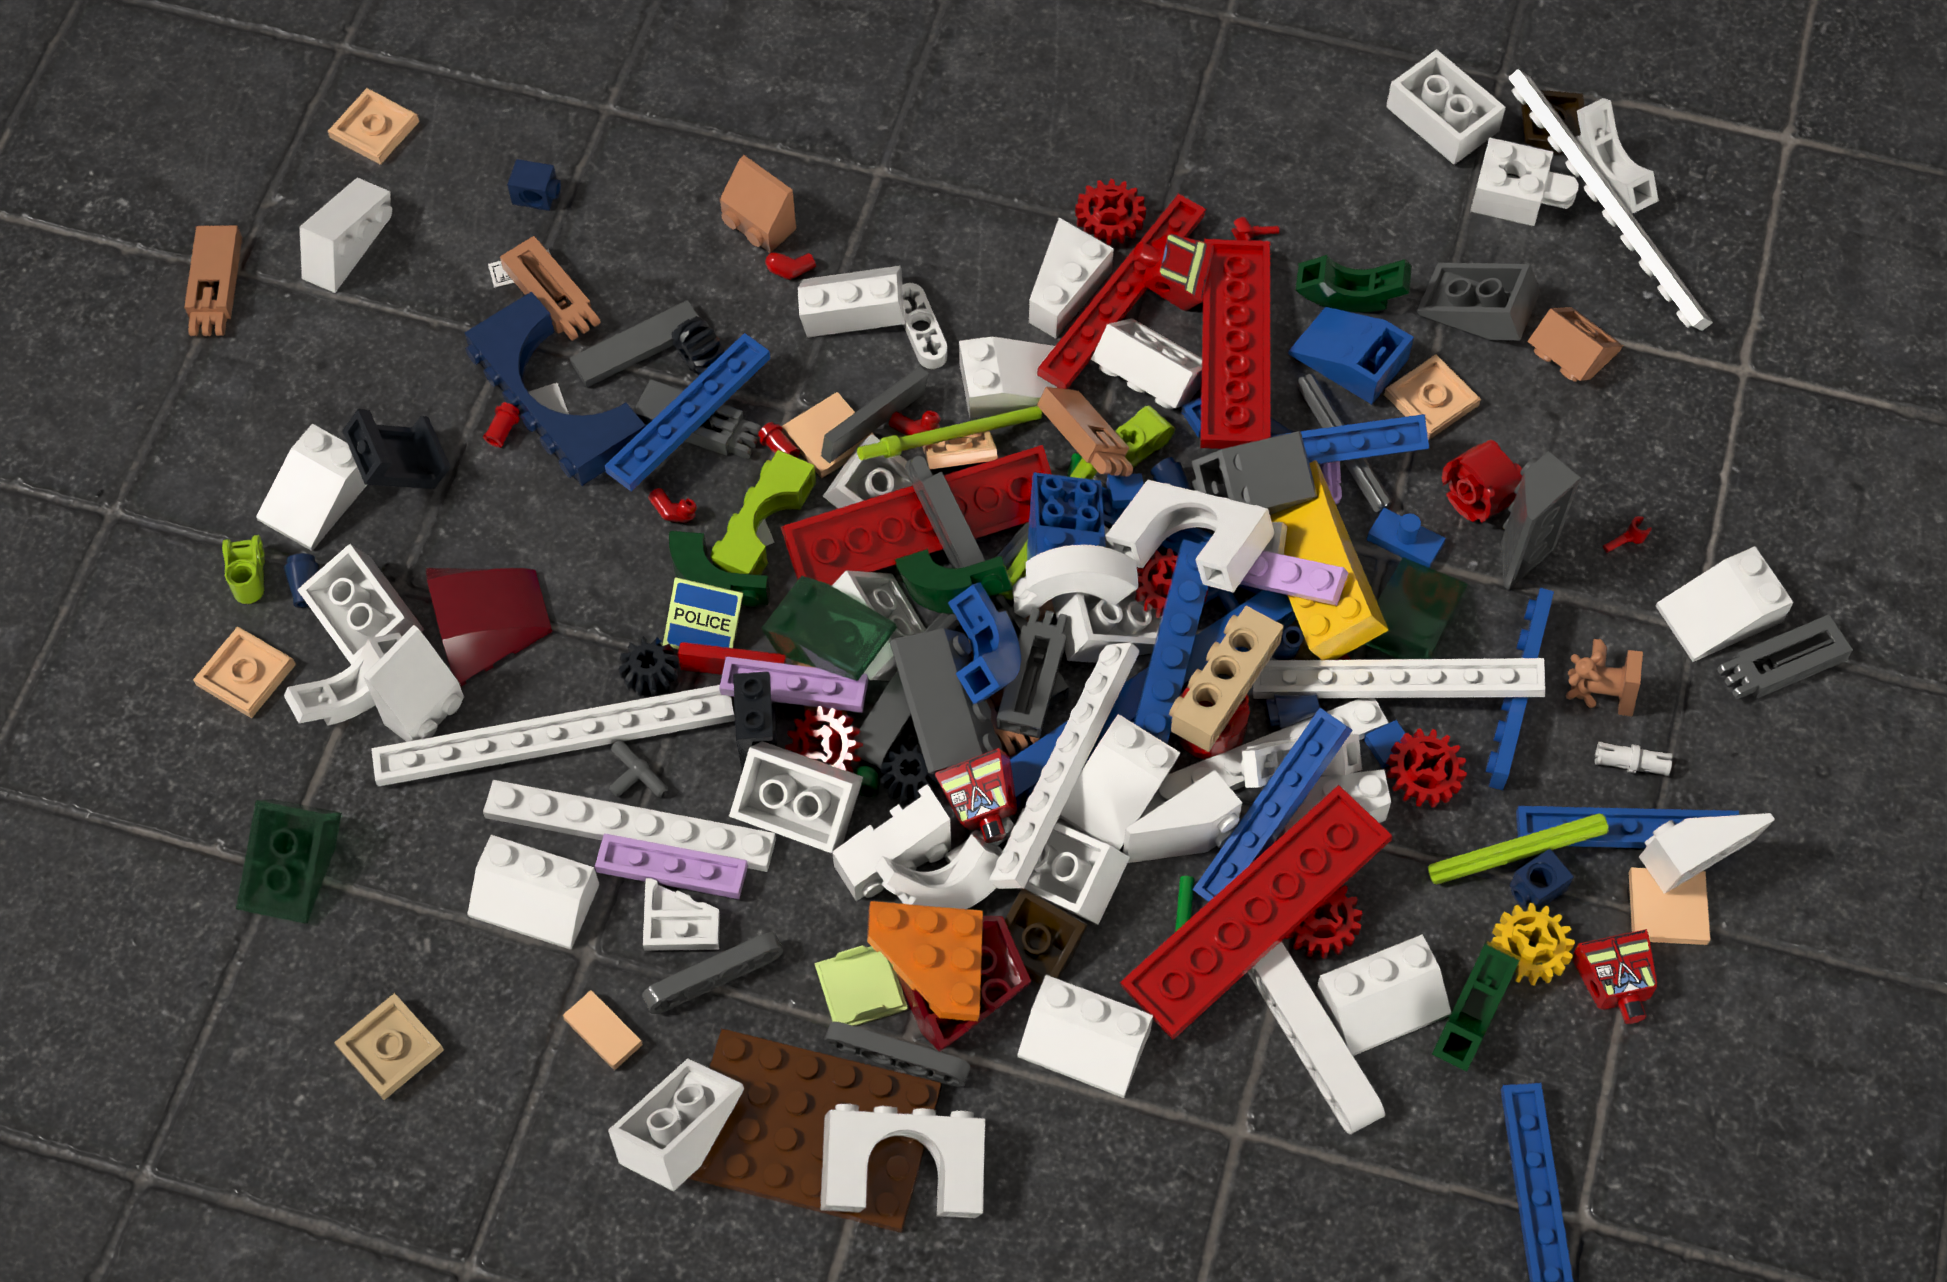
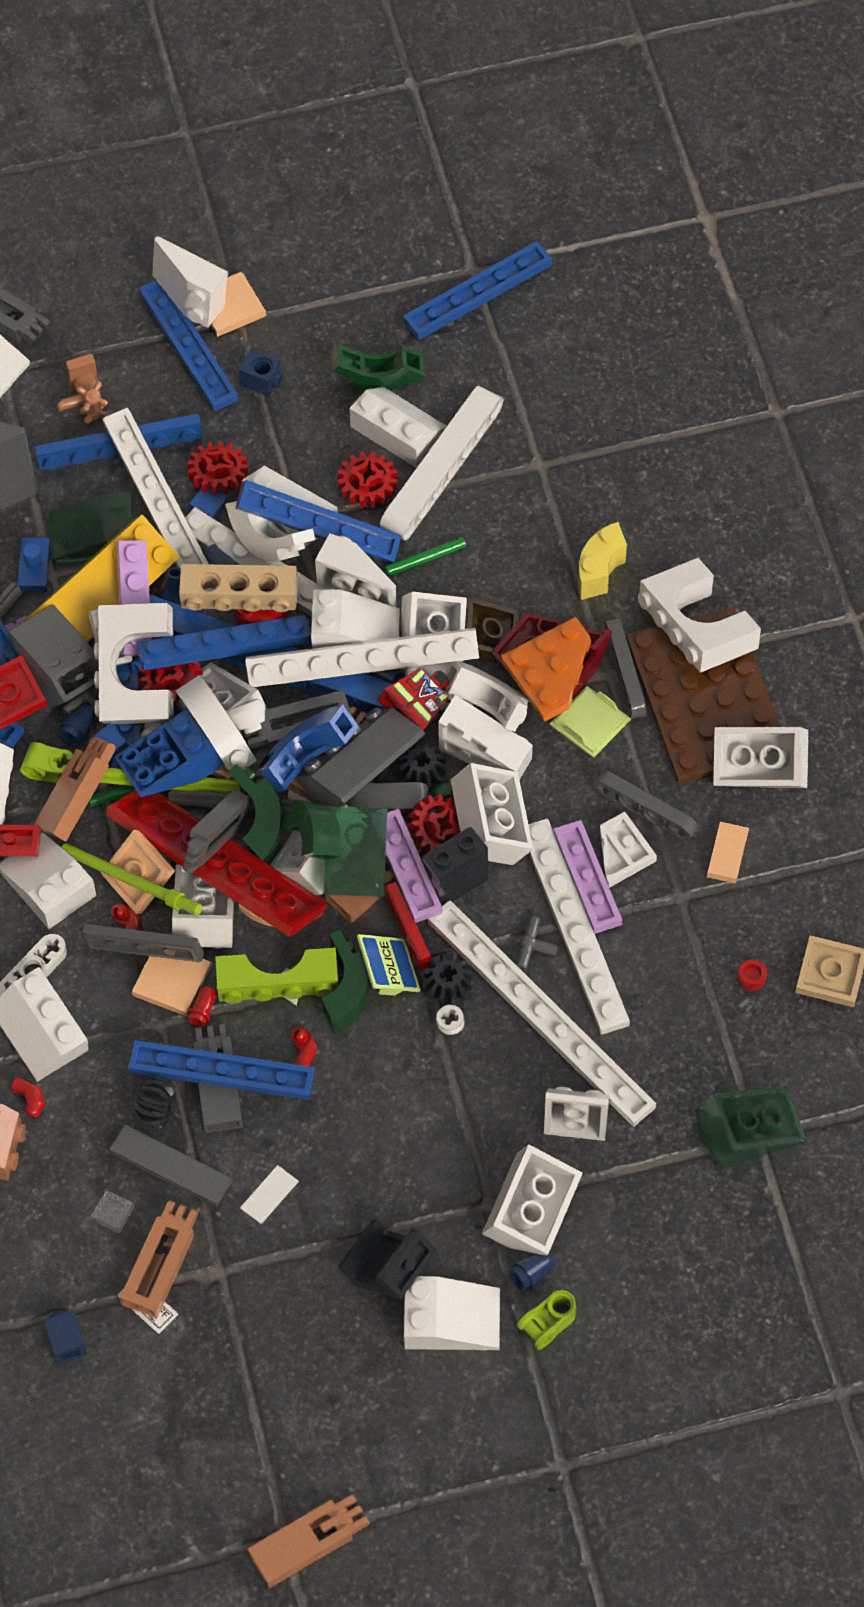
camera: 120 degrees left, 0 degrees up
(244, 672) = (630, 1264): light nougat tile -> none
(342, 232) = (200, 1451): white wedge -> none
(343, 694) = (598, 1168): white arch -> none
(373, 126) = (73, 1520): light nougat tile -> none
(448, 967) = (752, 975): none -> red tile
(486, 615) = (473, 1125): dark red wedge -> none
(505, 418) = (307, 1215): red pin -> none
(532, 892) = (665, 950): white slope -> none
(579, 441) = (239, 1255): dark blue arch -> none
(608, 662) = (455, 1026): none -> white bush
(627, 279) = (112, 1211): none -> clear tile
(868, 586) = (318, 830): none -> dark green arch
(1055, 1104) = (599, 558): none -> light yellow brick
(1059, 607) = (248, 715): none -> white cone
(1085, 1036) = (538, 569): white slope -> none
(1255, 911) = (396, 500): red plate -> none
(1518, 848) = (247, 391): lime axle -> none
(1548, 950) = (295, 361): yellow gear -> none
(1618, 972) = (297, 307): torso -> none
(1633, 758) = (132, 362): white pin -> none

